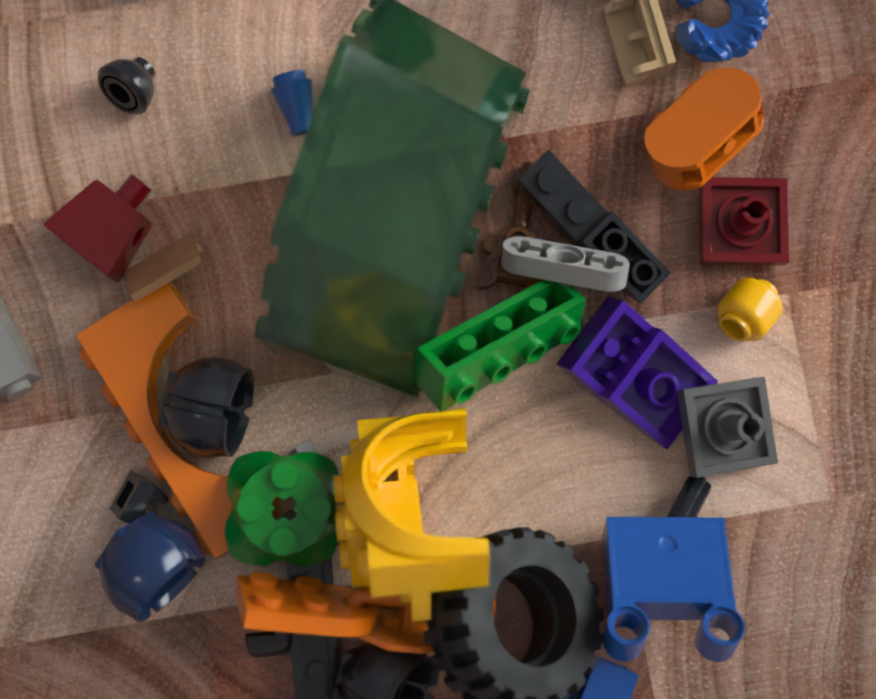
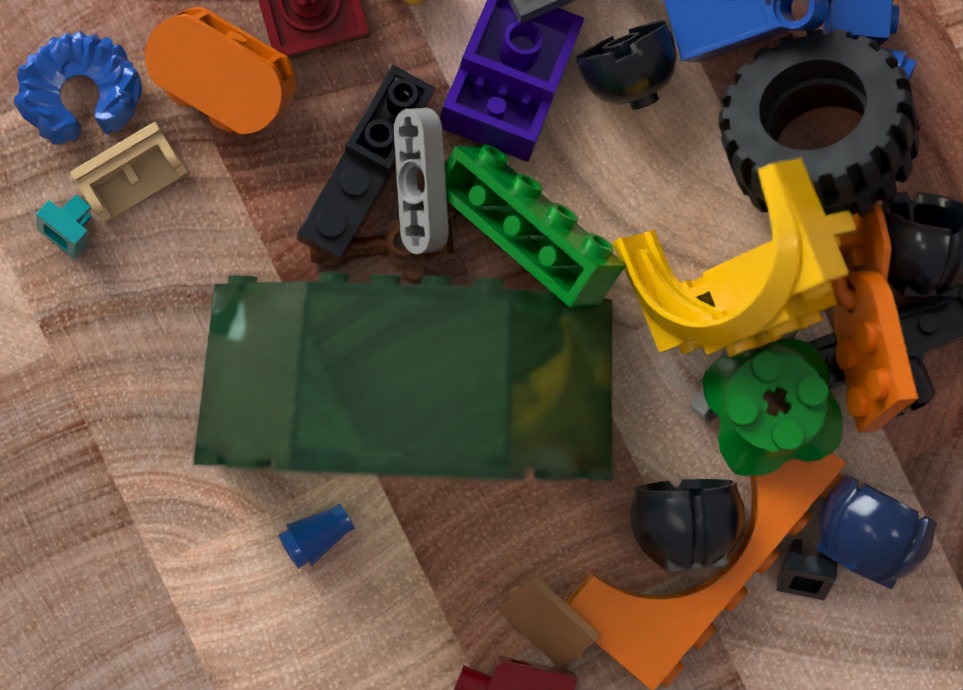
camera: 110 degrees left, 5 degrees up
(614, 473) = (630, 66): none -> black cylinder

